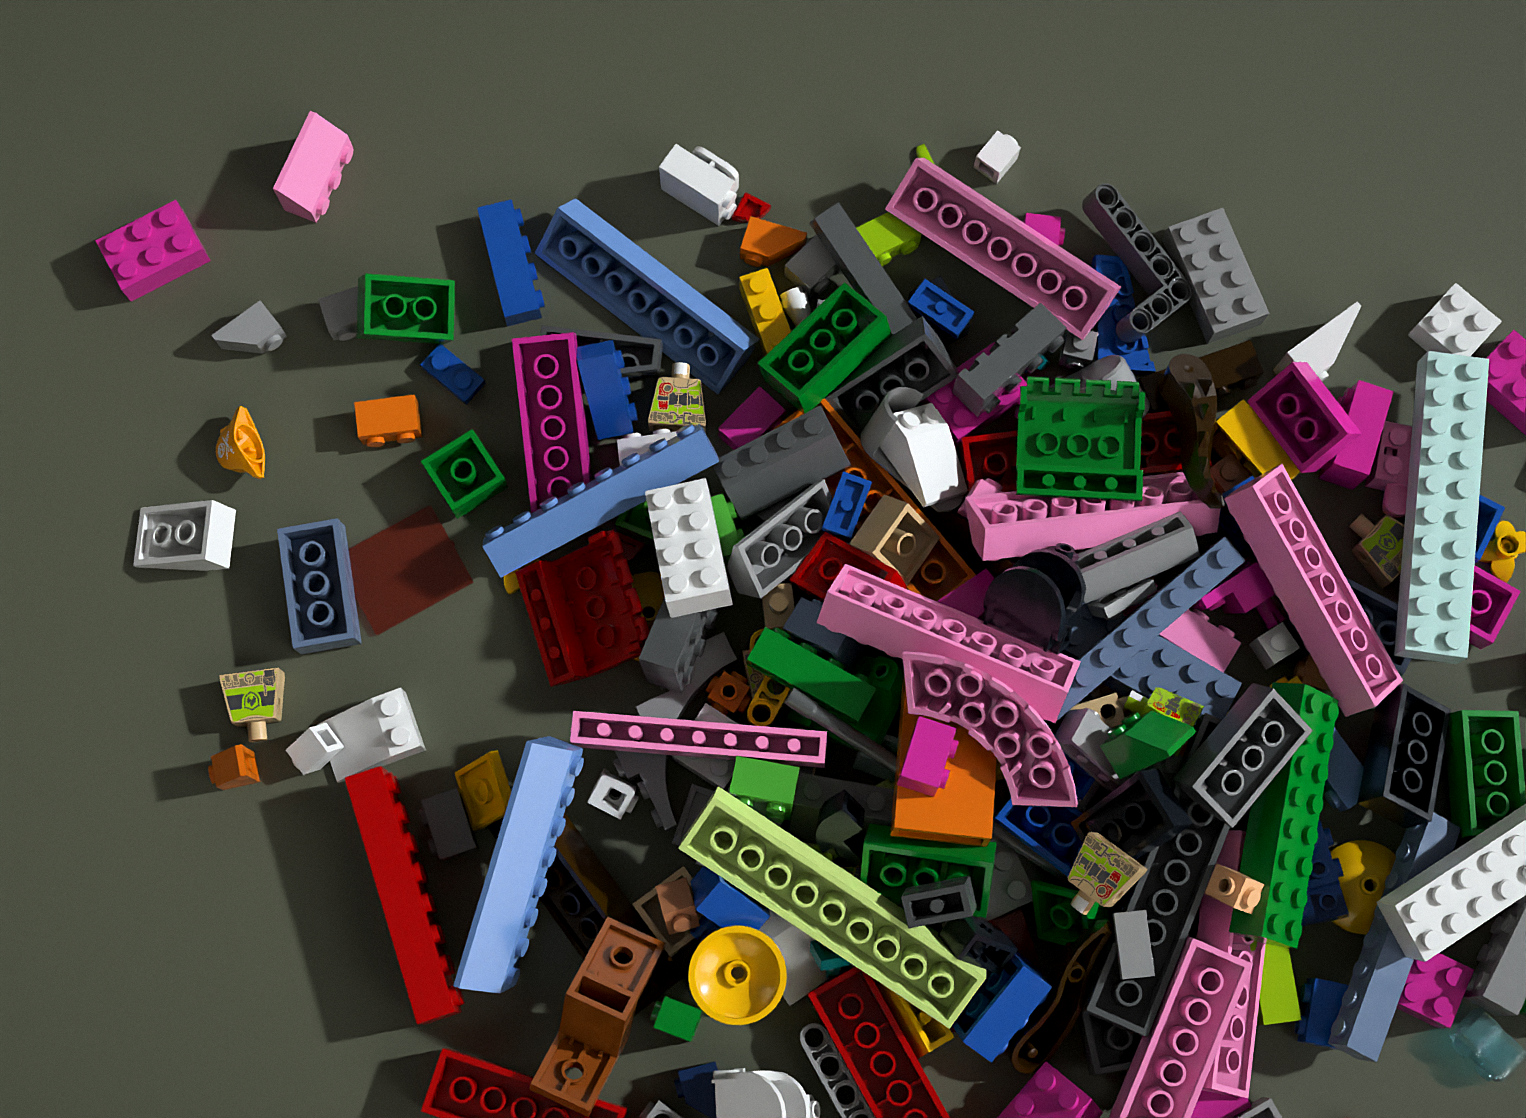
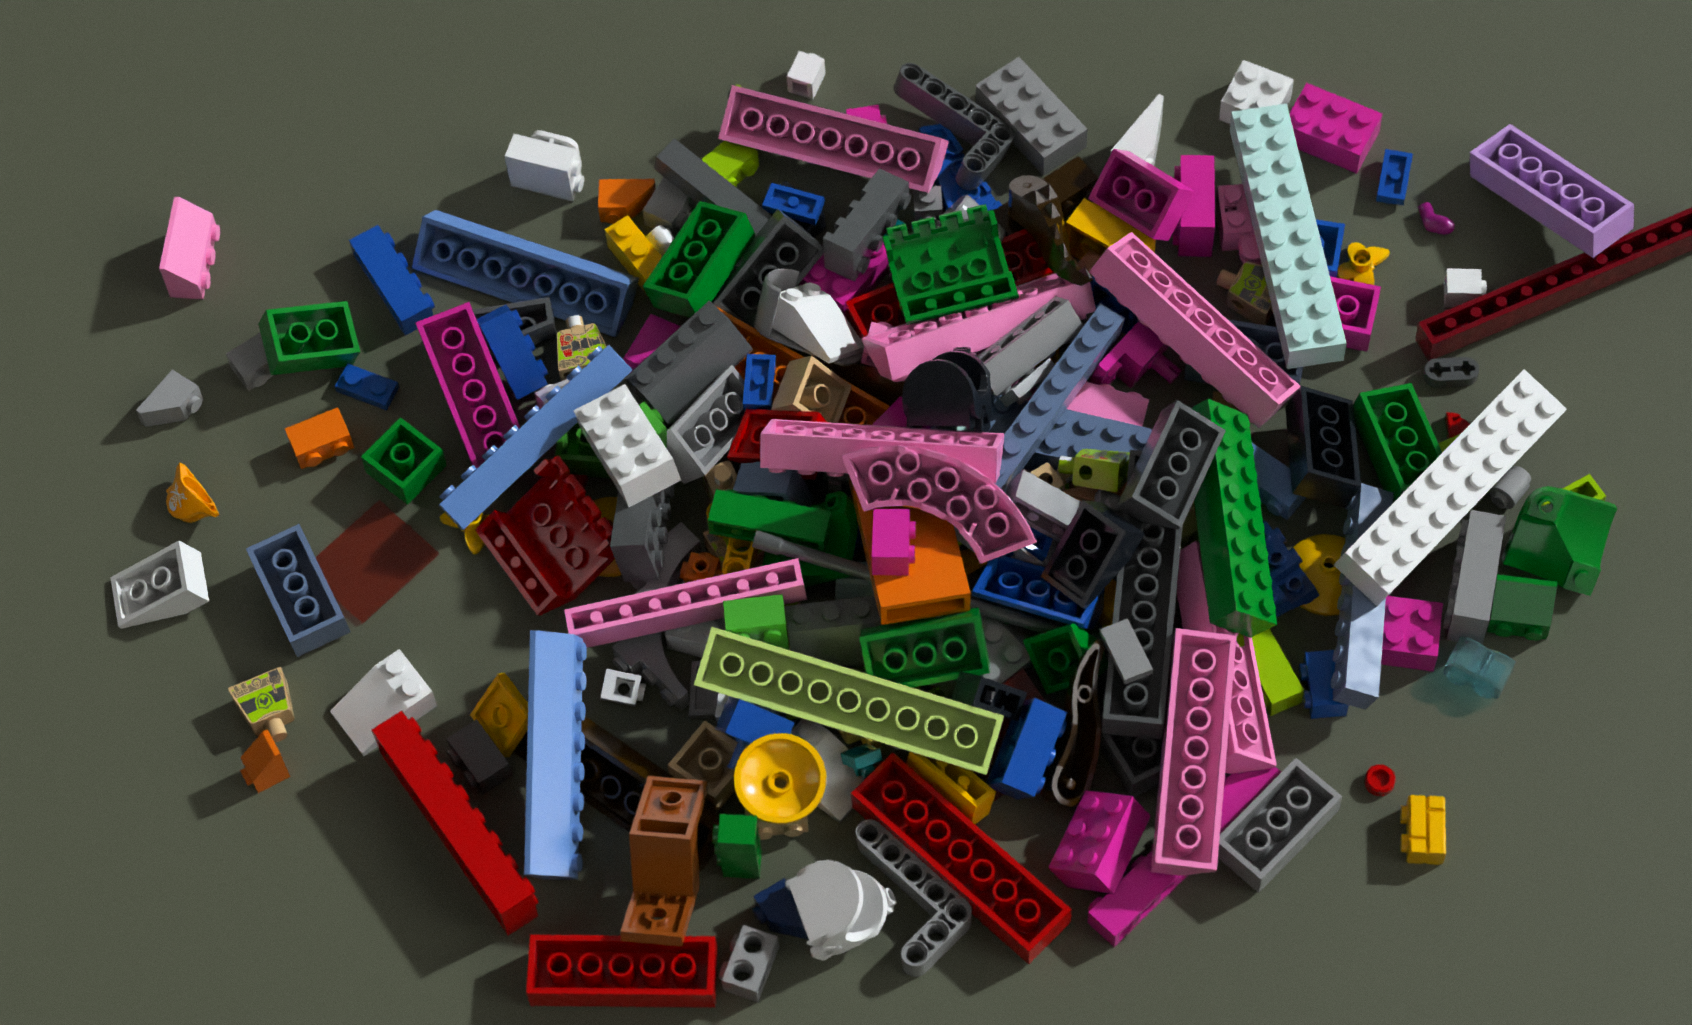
camera: 10 degrees left, 15 degrees down
(152, 250) = (60, 359): dark pink brick -> none
(314, 748) = (334, 727): white brick -> none
(677, 906) = (709, 746): nougat brick -> none
(749, 207) = (592, 177): red tile -> none
(838, 826) = (830, 637): black brick -> none
(939, 901) = (940, 662): dark grey brick -> none
(1102, 873) = (1078, 596): torso -> none
(1144, 741) = (1080, 482): green slope -> none
(1234, 888) = (1201, 582): light nougat brick -> none
(1274, 645) = (1183, 390): white brick -> none

